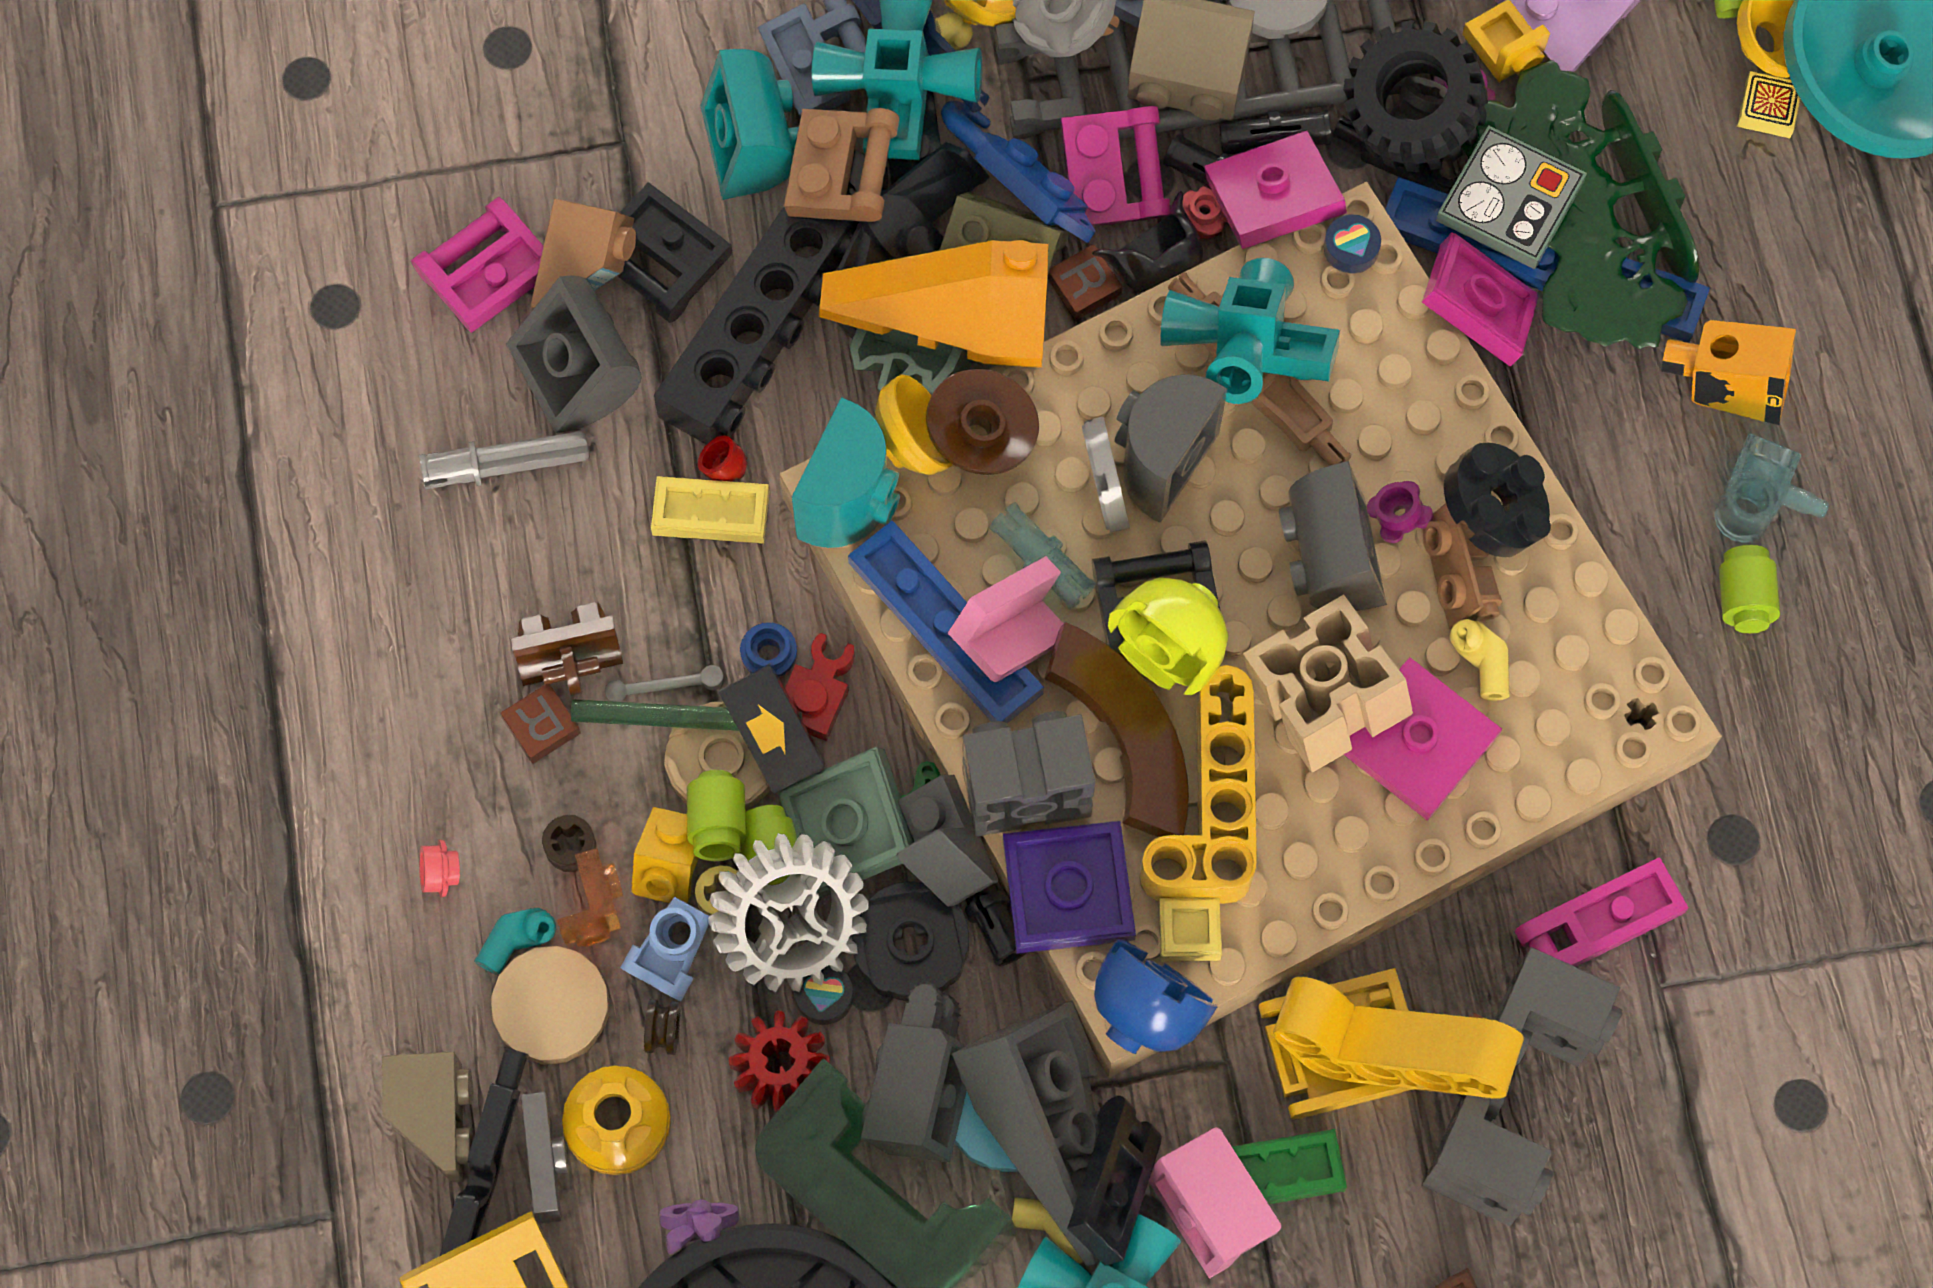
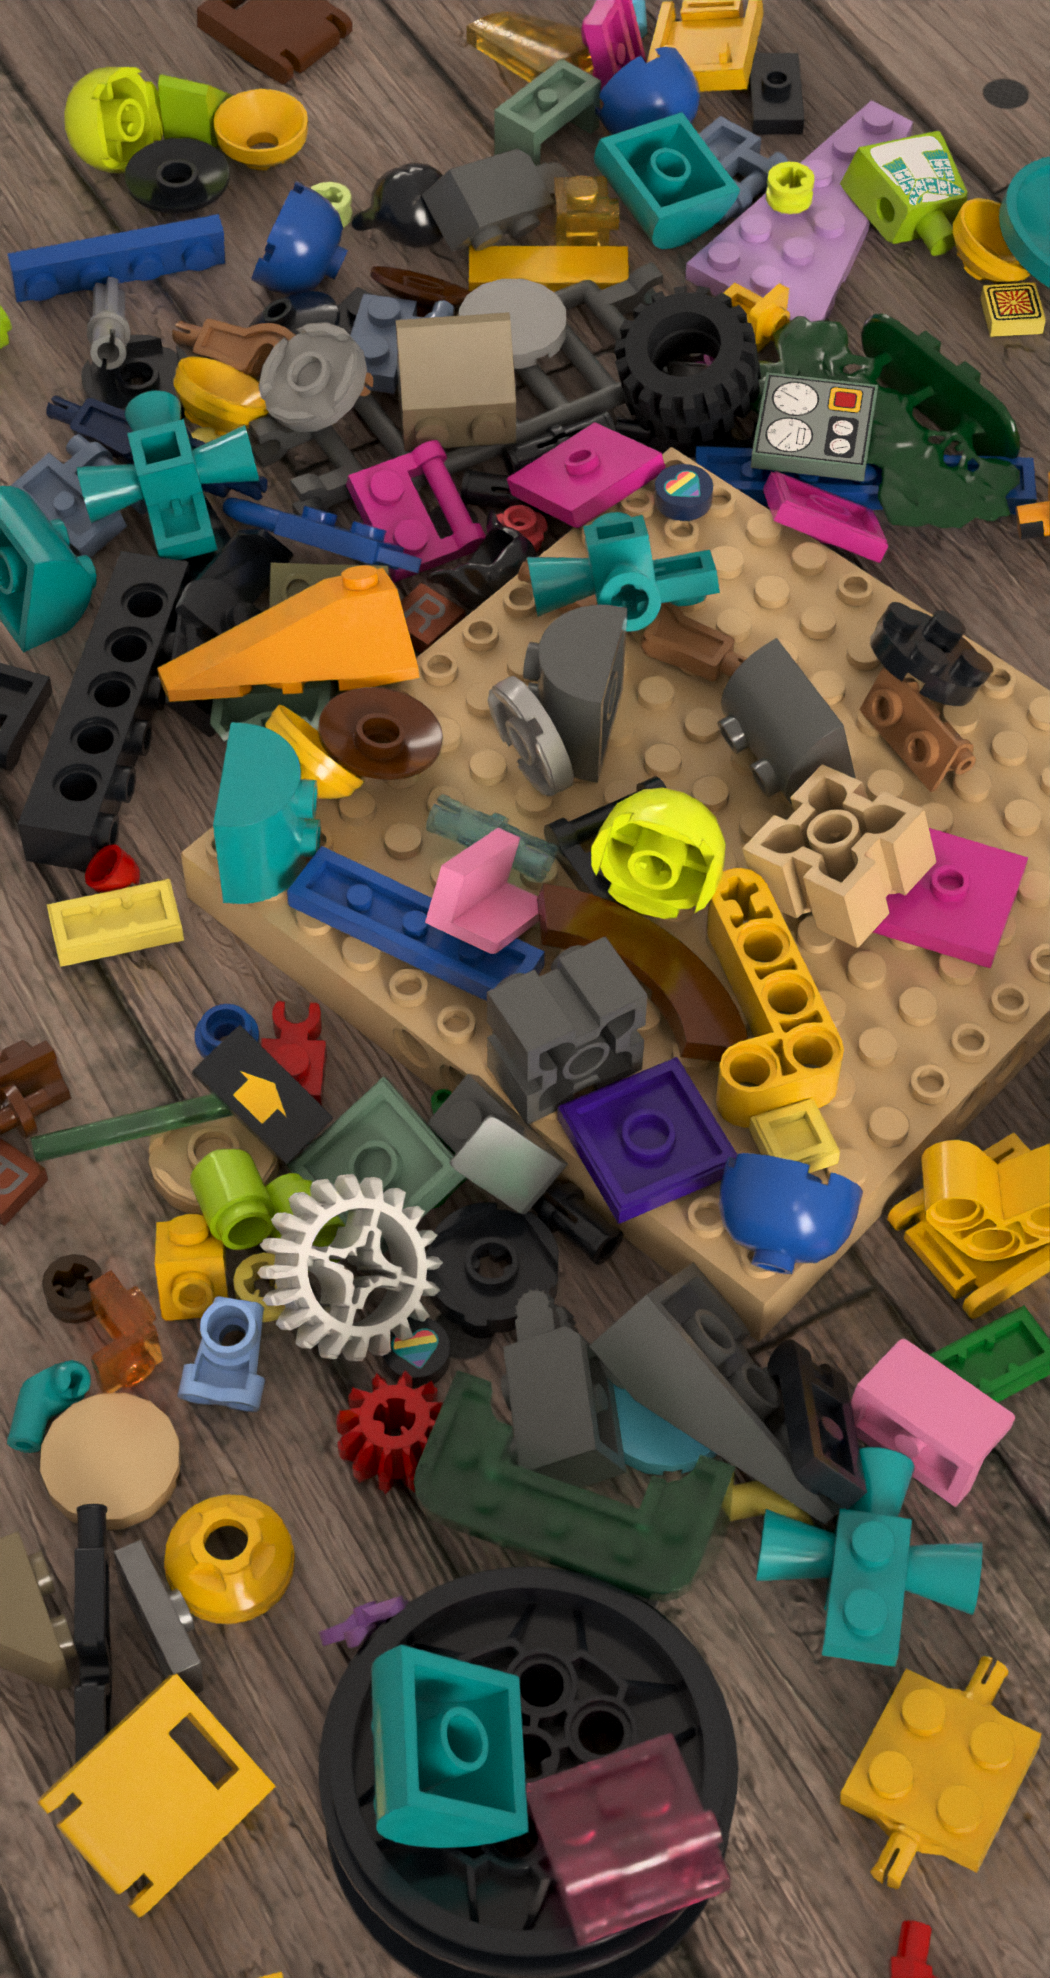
camera: 20 degrees left, 15 degrees down
(662, 1027) = (248, 1438): dark brown bush -> none
(710, 678) = (172, 1084): light grey hinge -> none
(825, 160) = (123, 568): medium nougat plate -> none
(1396, 497) = (841, 692): magenta plate -> none
(1487, 654) = (980, 798): light yellow arm -> none

